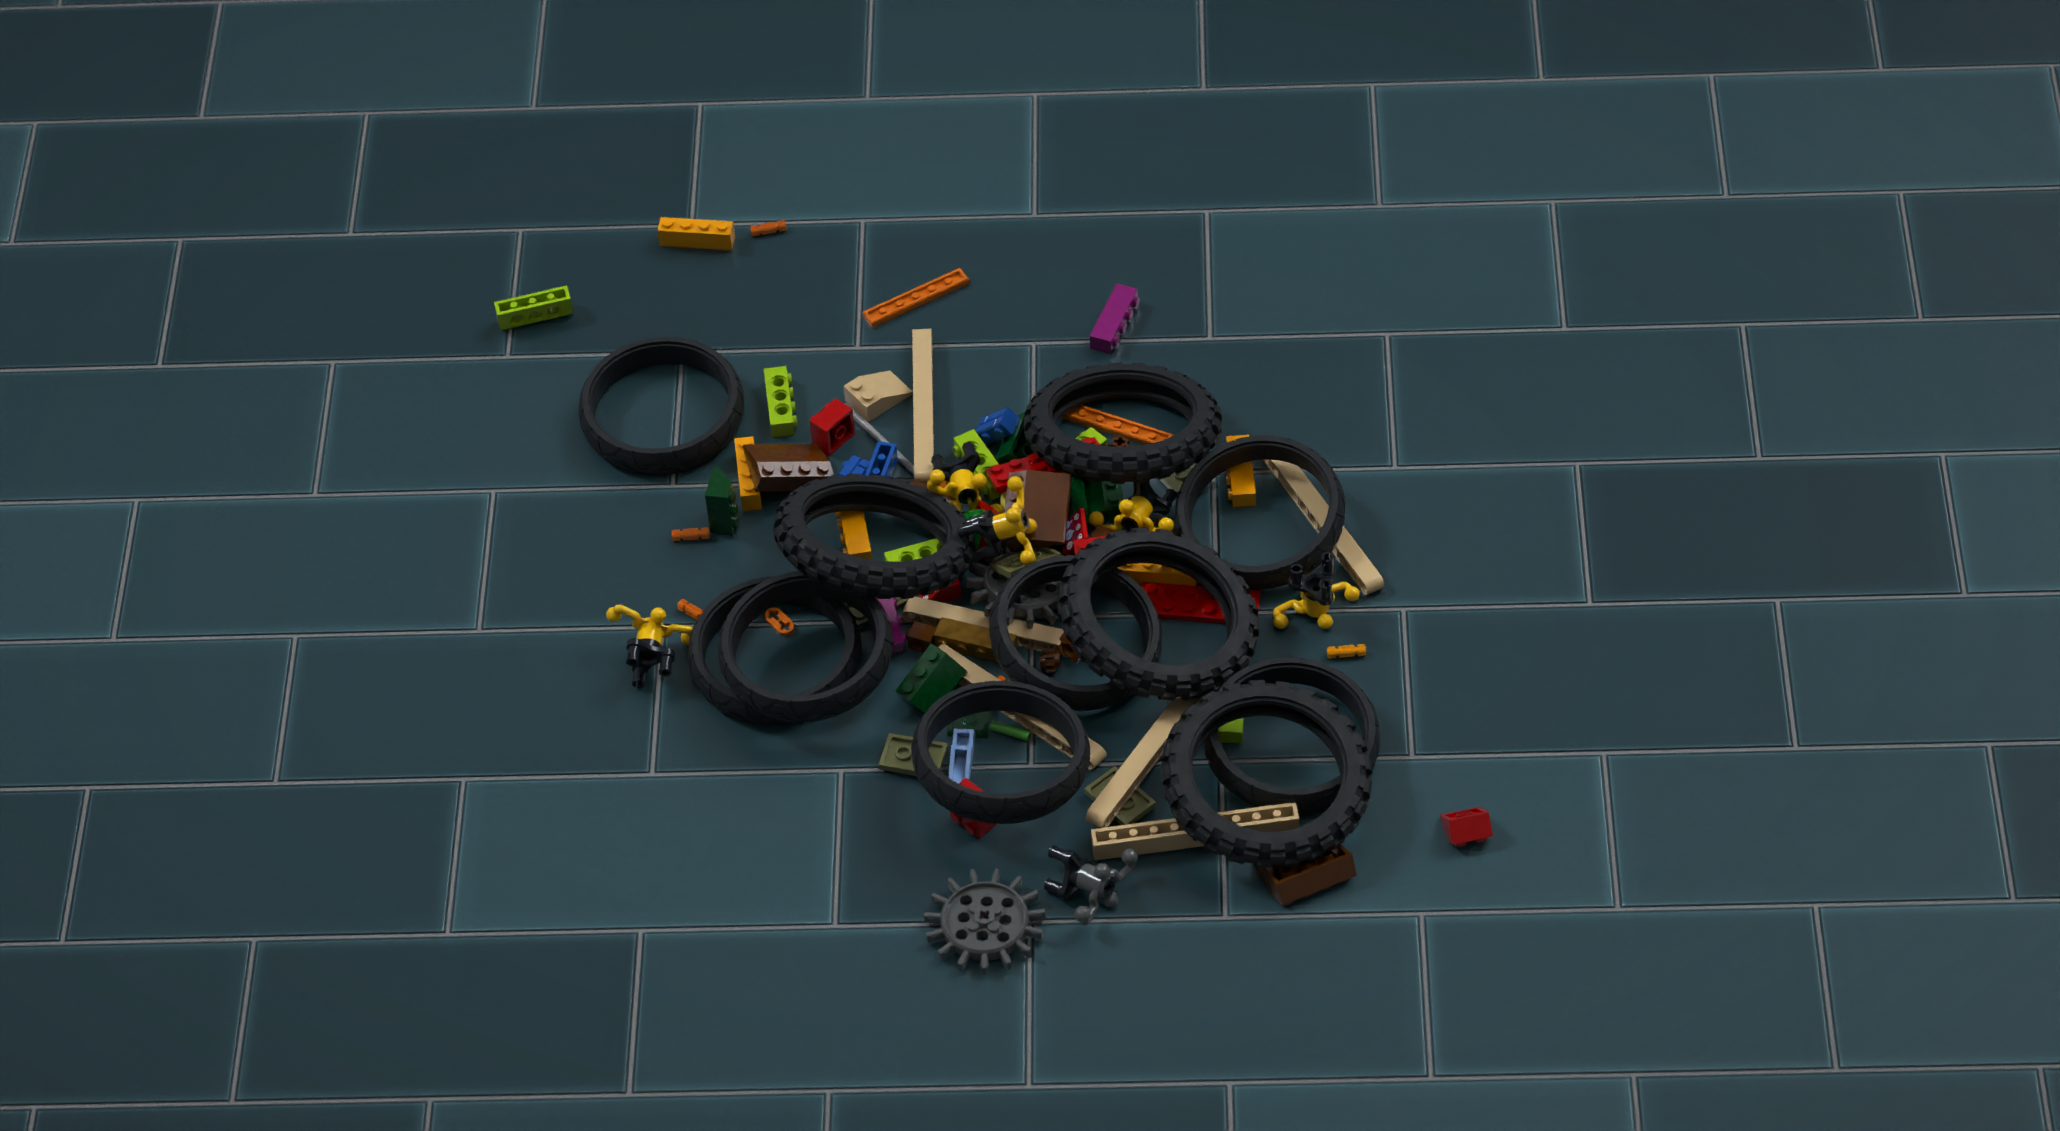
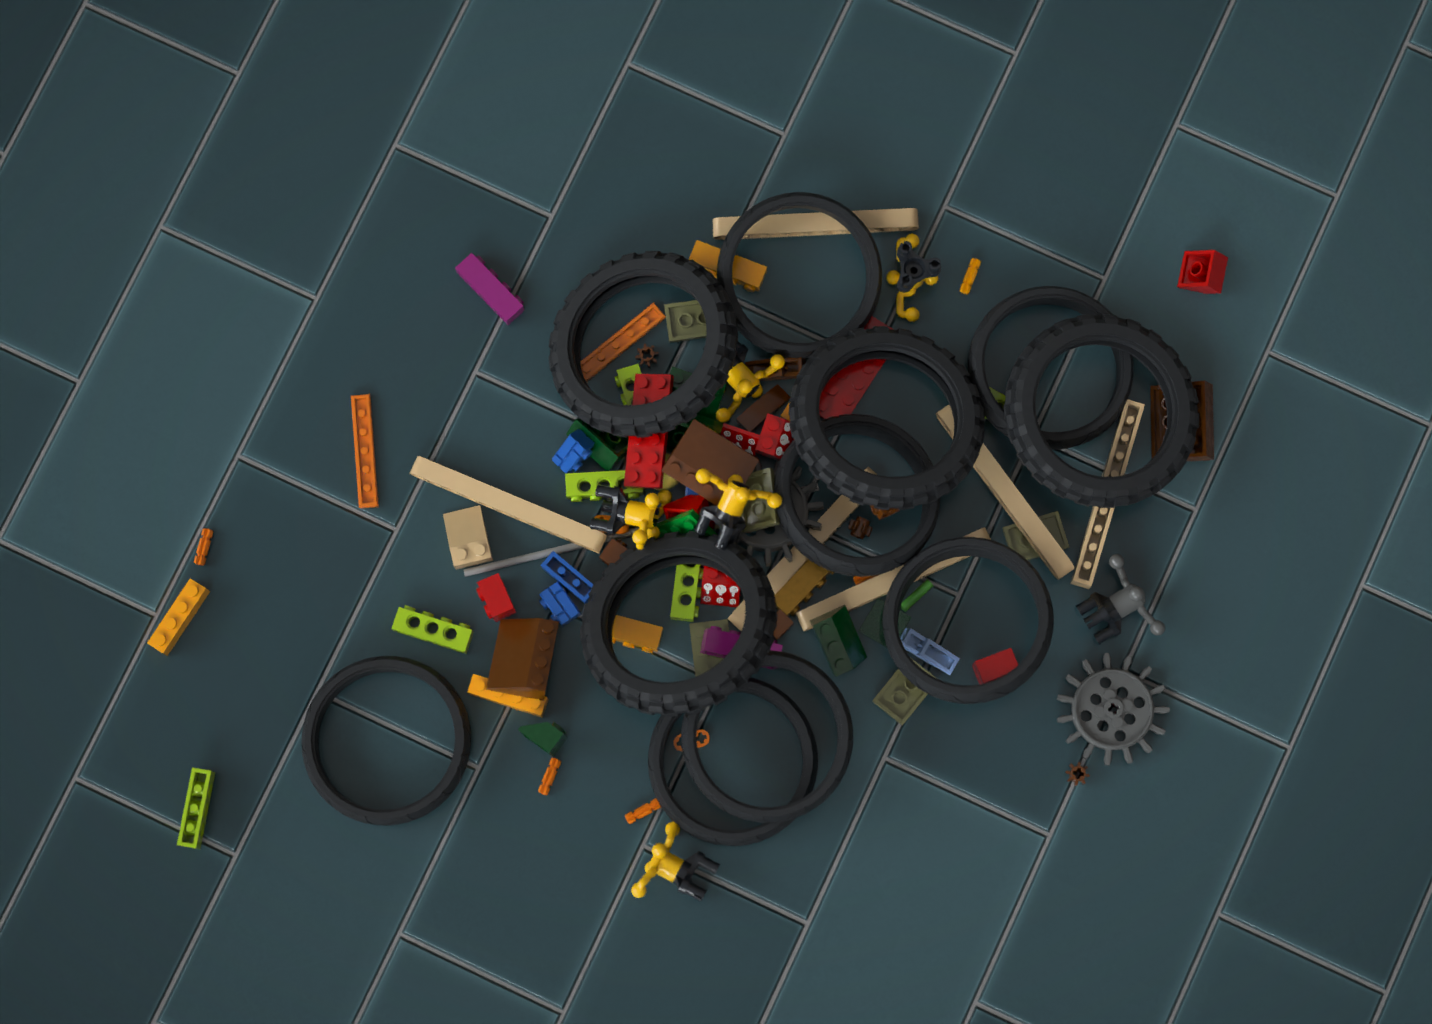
camera: 65 degrees left, 30 degrees up
(905, 917) = (1073, 777): none -> reddish brown gear

